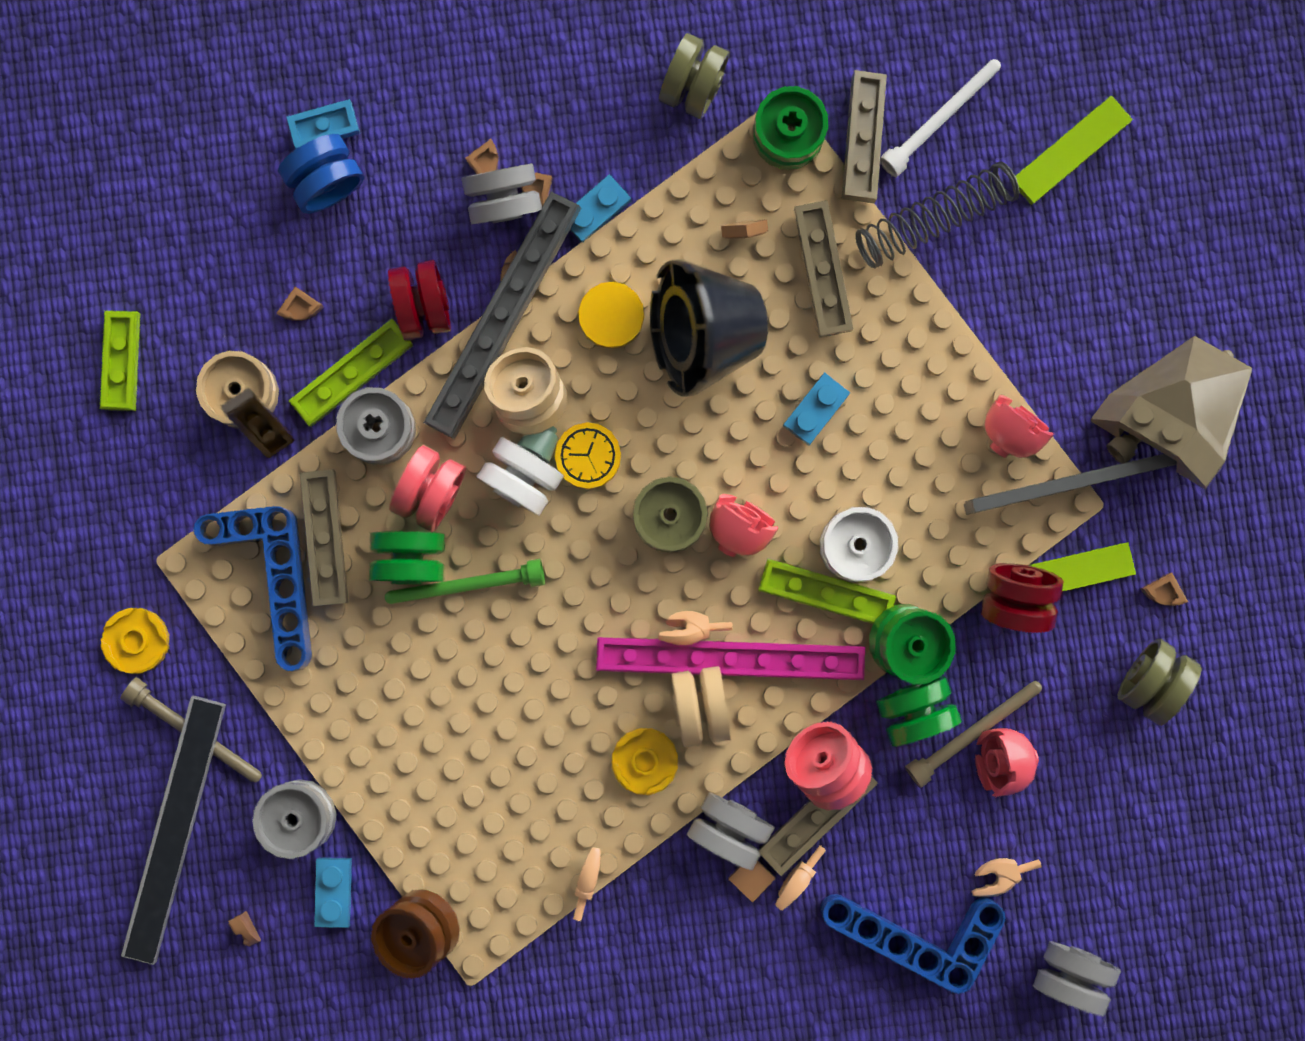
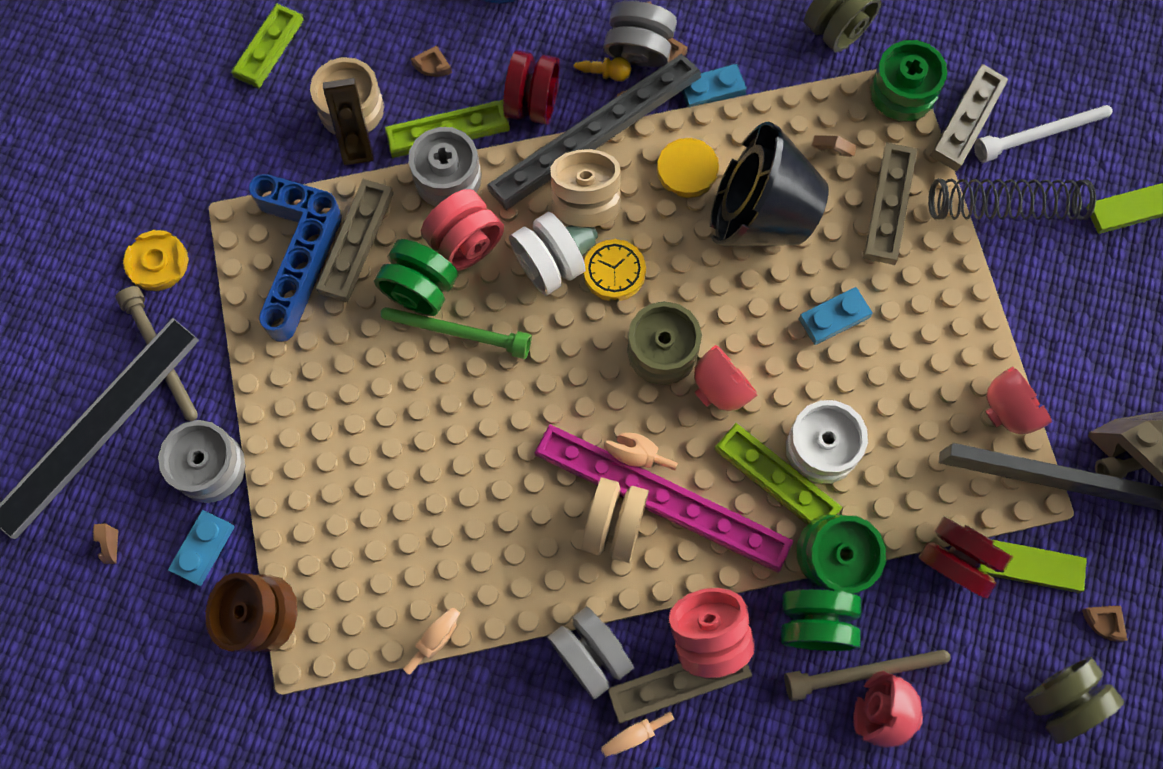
camera: 30 degrees right, 15 degrees down
(489, 233) = (617, 68): none -> yellow bar
(644, 761) = (540, 554): yellow tile -> none
(752, 882) = (590, 715): medium nougat tile -> none

